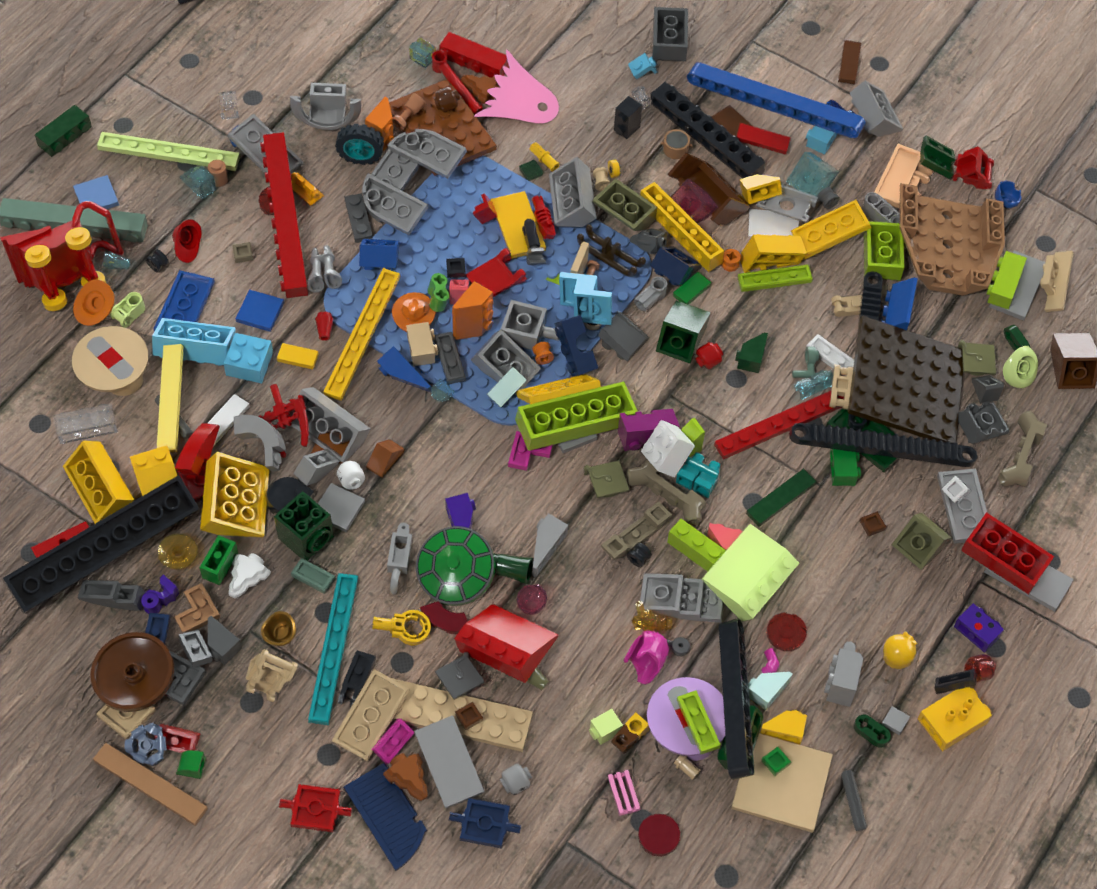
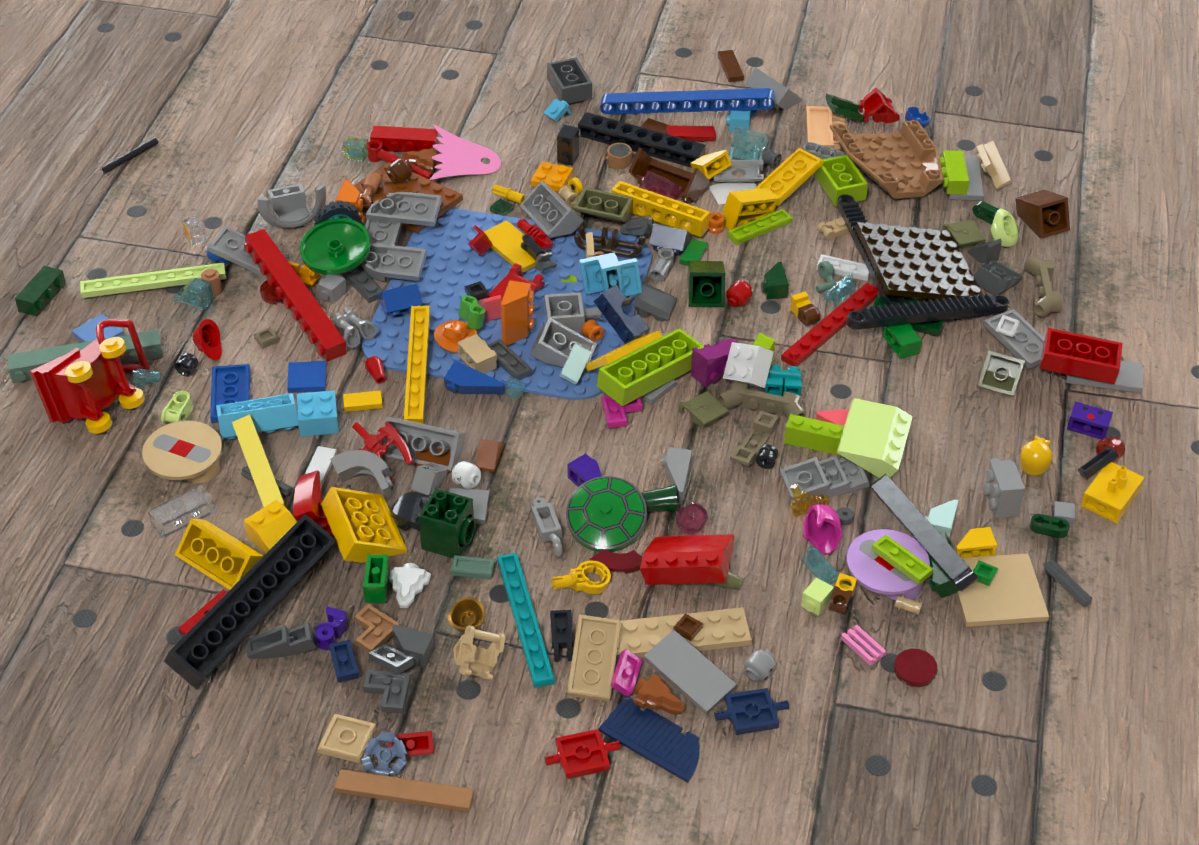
camera: 20 degrees left, 15 degrees down
(93, 302) = (141, 412): orange hat -> none
(132, 672) = (339, 696): reddish brown dish -> none
(177, 544) = (330, 586): clear yellow dish -> none
(191, 764) = (437, 758): green brick -> none
(325, 216) = (332, 288): none -> light grey brick
(343, 173) = (335, 246): none -> green dish
(460, 676) = (660, 600): dark grey hat -> none
(598, 147) = (552, 174): none -> light orange plate
(627, 695) = (819, 566): none -> clear light blue hinge
(765, 395) = (804, 309): none -> leg
(772, 664) = (930, 500): dark pink arm -> none
(781, 497) = (863, 378): dark green tile -> none
(786, 632) = (929, 476): clear red tile -> none
(841, 386) = (867, 280): tan plate -> none
(872, 523) = (952, 375): reddish brown tile -> none
(900, 303) = (880, 208): blue slope -> none

